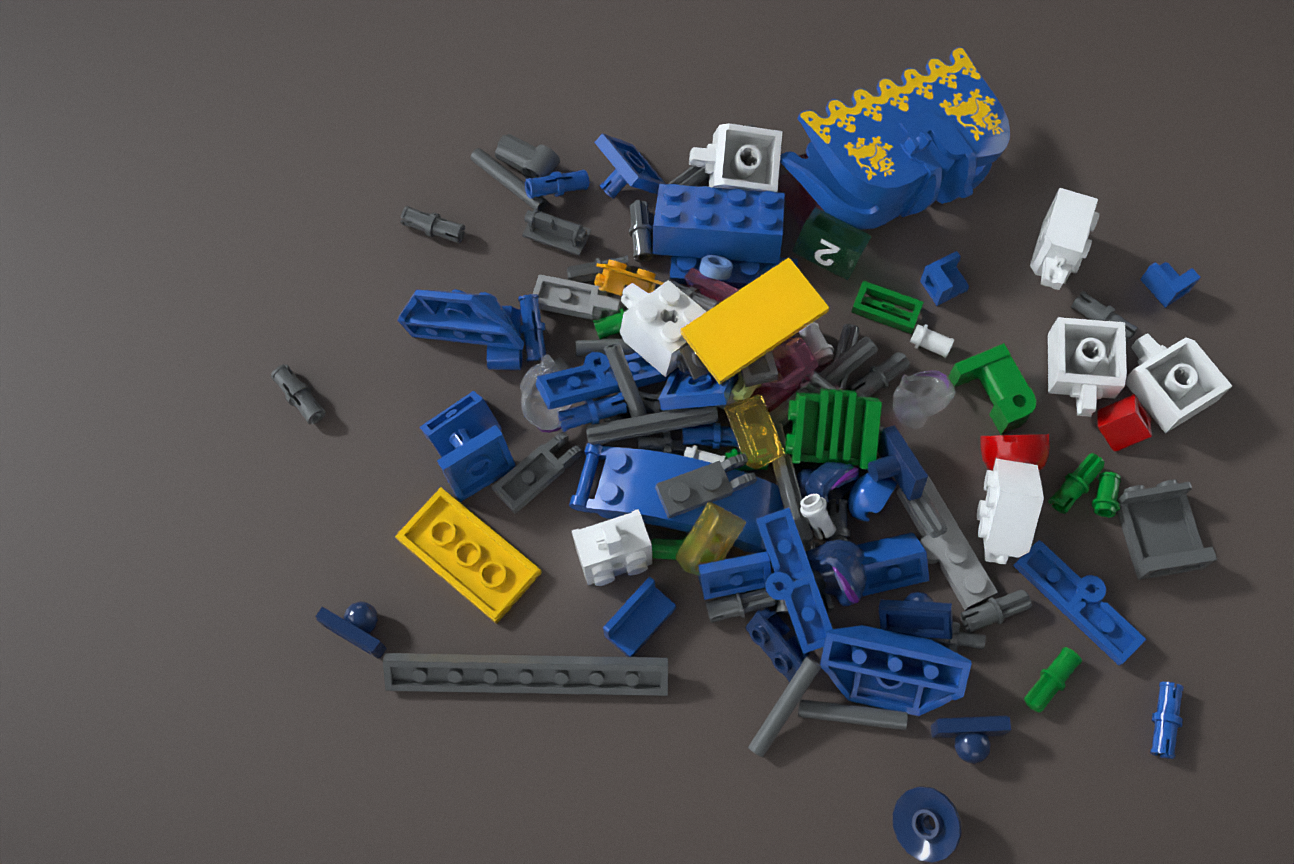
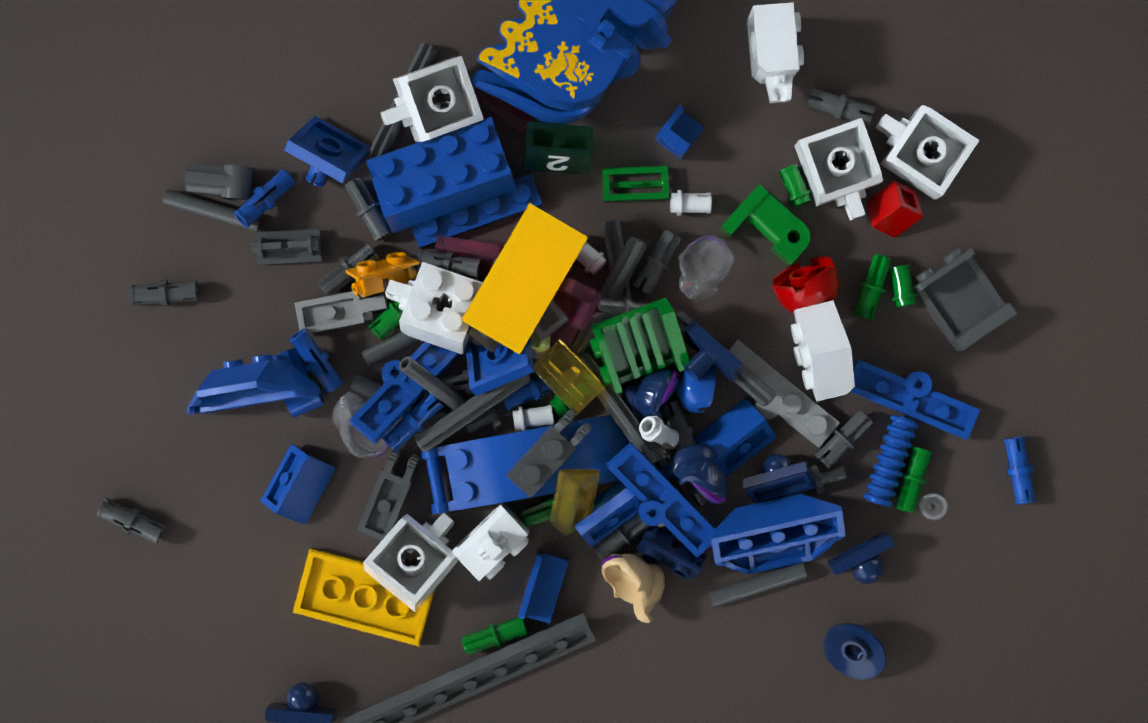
camera: 25 degrees left, 20 degrees up
(476, 461) = (331, 517): blue tile -> none
(530, 531) = (411, 541): none -> white hinge
(571, 644) = (494, 635): none -> green axle
(716, 267) = (460, 226): medium blue tile -> none
(731, 651) = (635, 582): none -> tan hair
(784, 706) = (700, 609): dark grey piece -> none
(1036, 372) = (795, 186): none -> green pin
(1036, 650) = (891, 460): none -> blue piece
(1070, 715) = (940, 506): none -> clear piece
(1167, 284) = (887, 41): blue panel -> none

